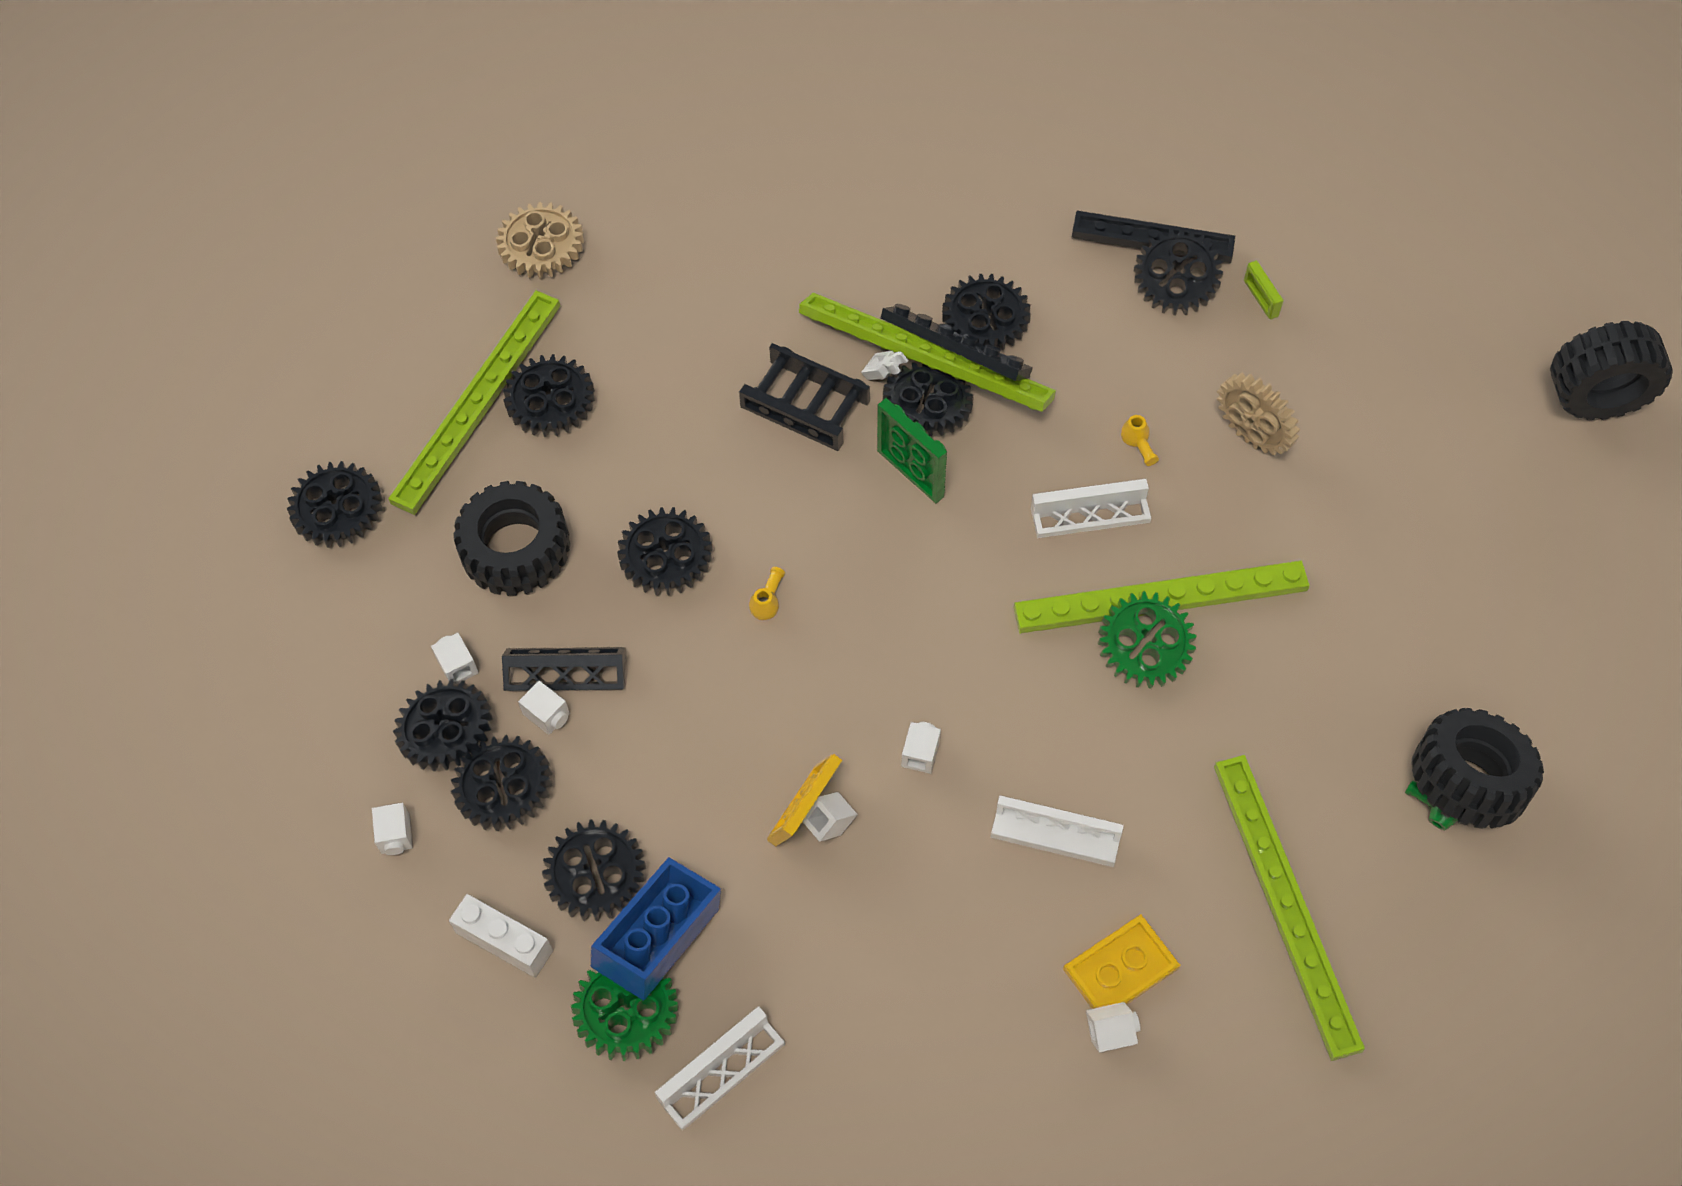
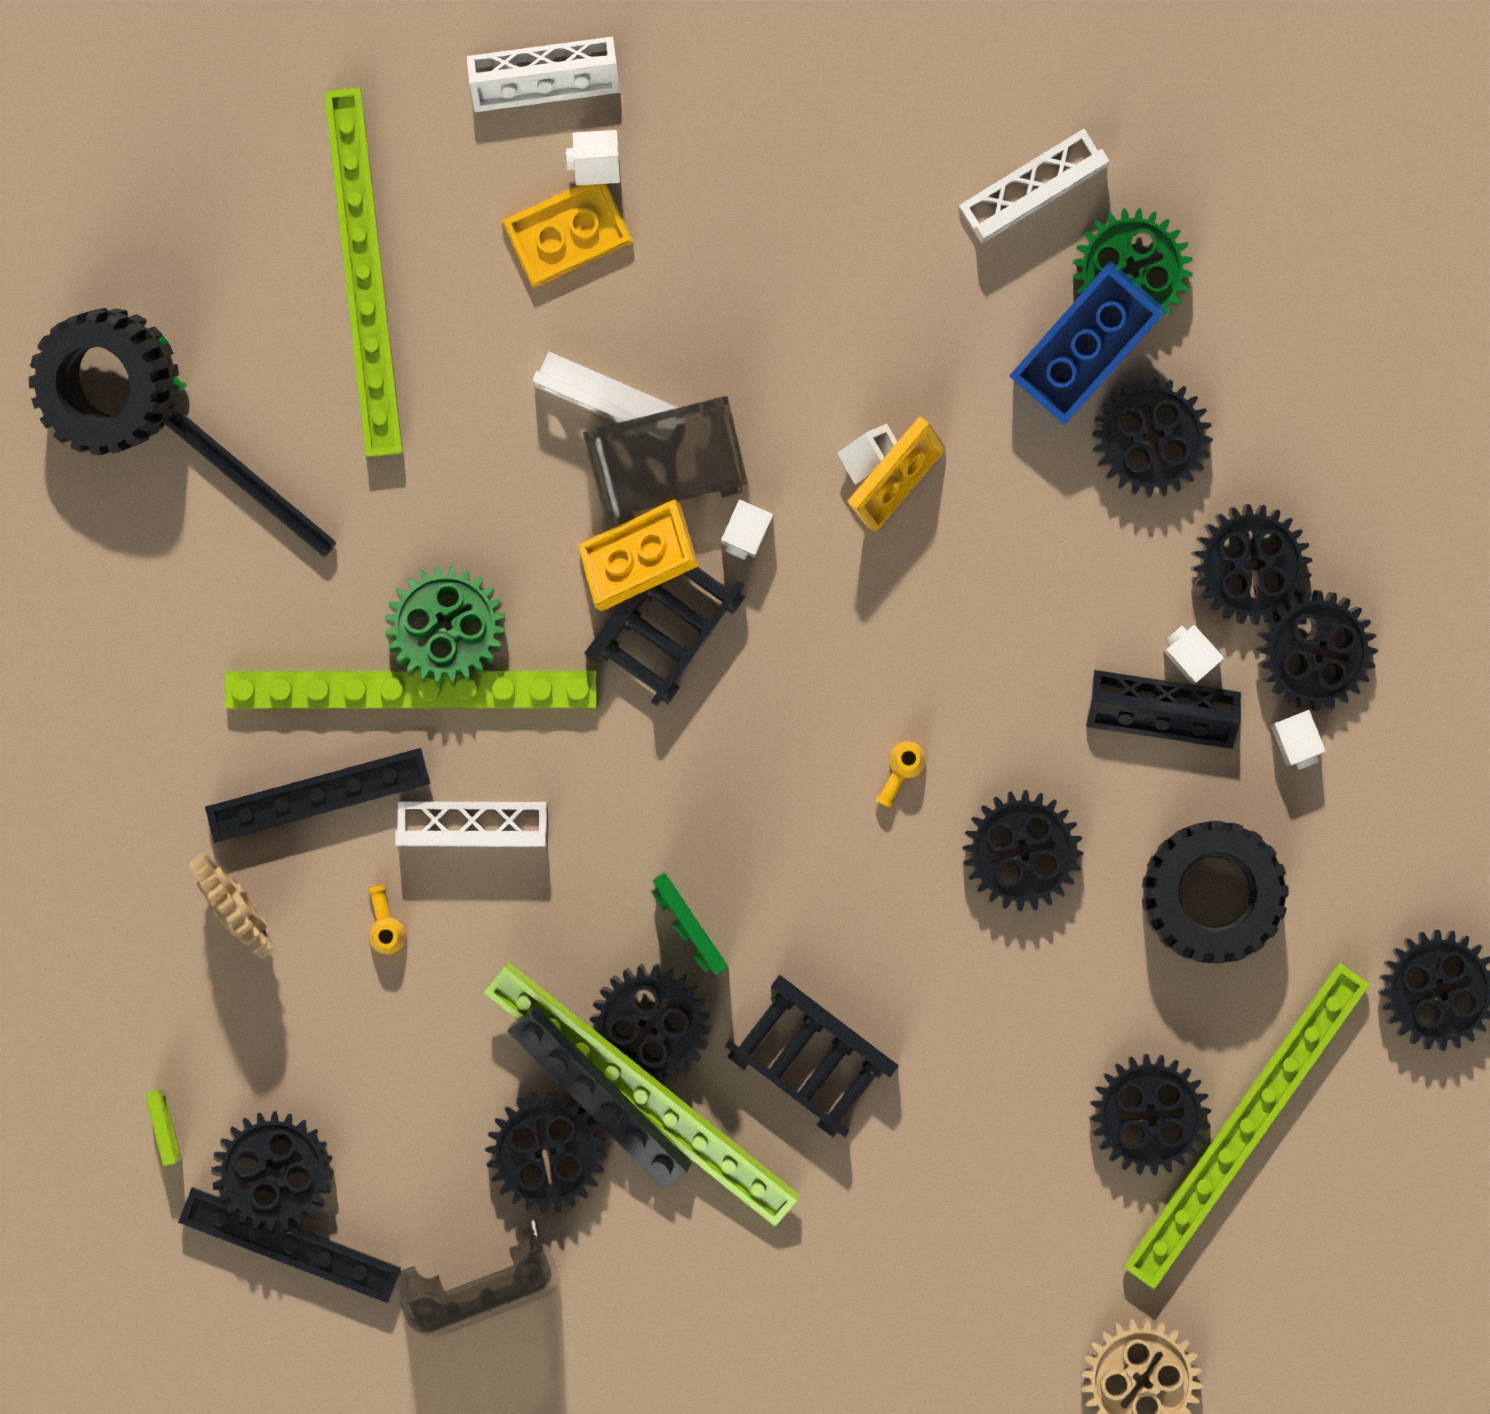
camera: 175 degrees left, 25 degrees up
(392, 829) = (1384, 524): white brick -> none
(501, 935) = (1265, 372): white brick -> none
(883, 365) = (700, 1085): white plate -> none
(992, 692) = (629, 617): none -> black fence
(997, 786) = (666, 458): none -> clear smoke windscreen
(1005, 707) = (637, 555): none -> yellow tile
(1014, 209) = (440, 1312): none -> clear smoke windscreen
(1170, 1090) = (543, 79): none -> white fence
(1212, 512) = (317, 795): none -> black plate
(1332, 726) = (250, 482): none -> black axle

